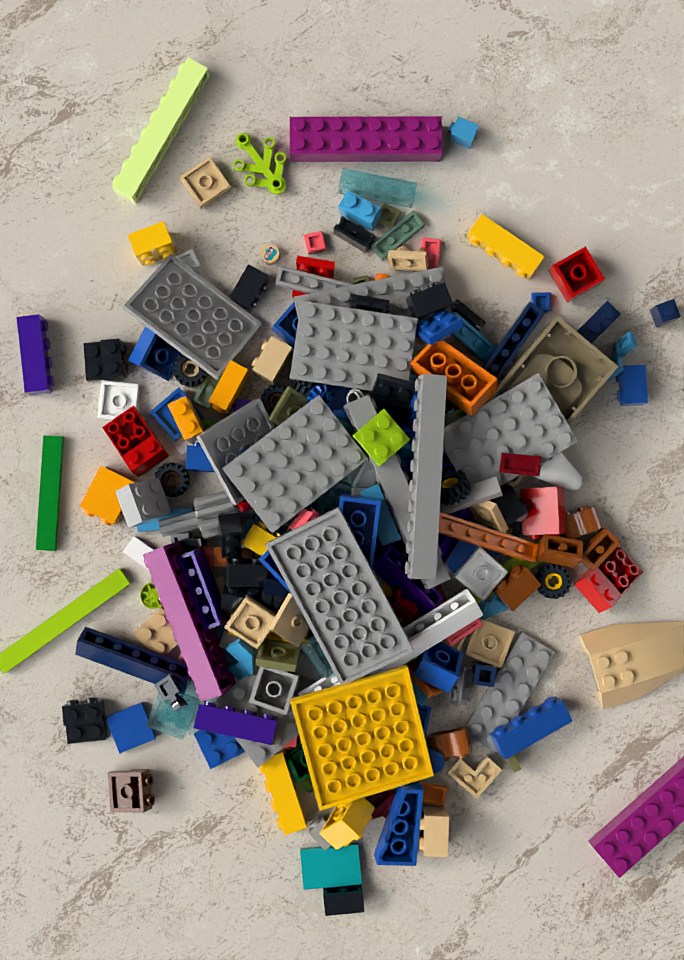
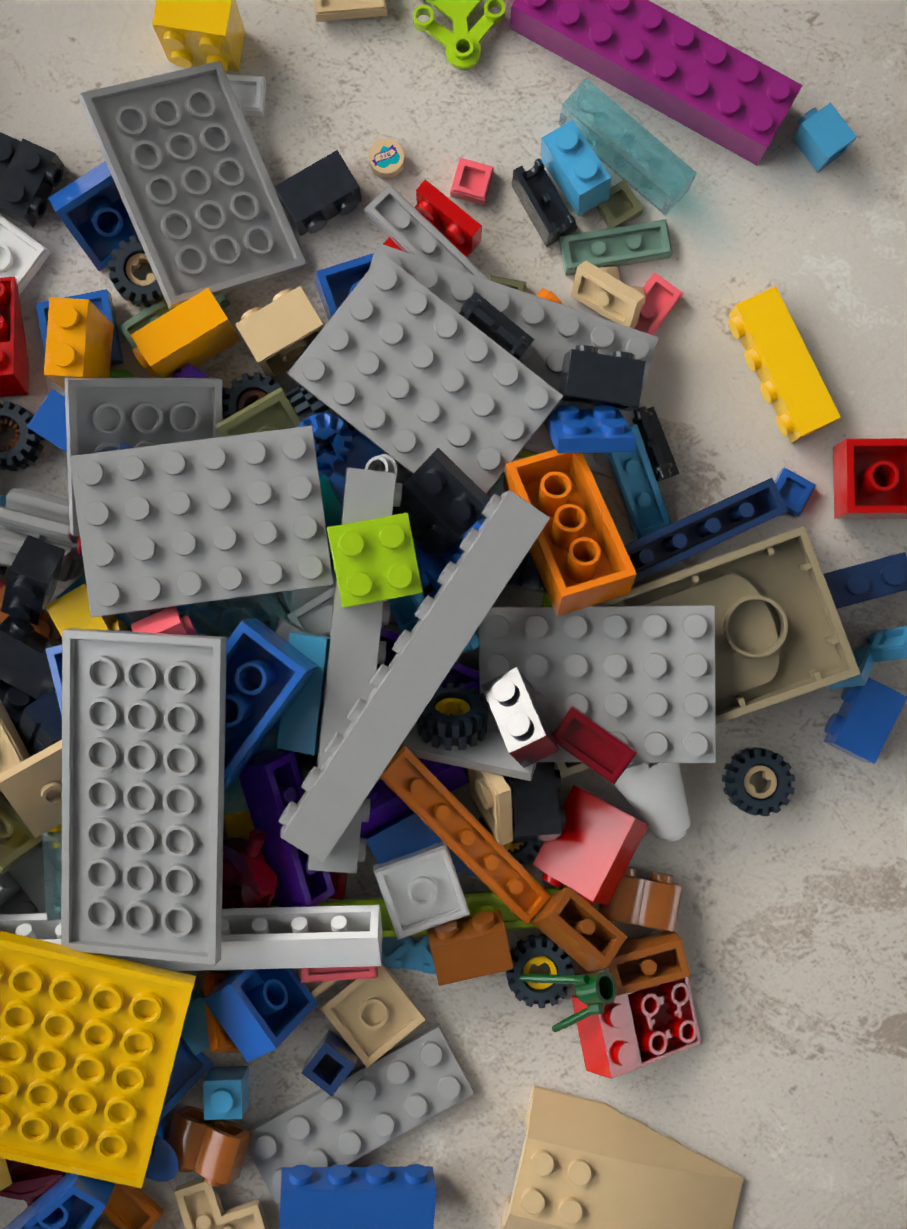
camera: 30 degrees right, 0 degrees up
(445, 715) = (226, 1092): none -> dark azure brick
(459, 693) = (274, 1069): light grey hinge -> none
(482, 470) = (520, 718): none -> brick
(580, 573) = (590, 989): none -> dark green plant
(596, 449) = (744, 795): none -> black bush

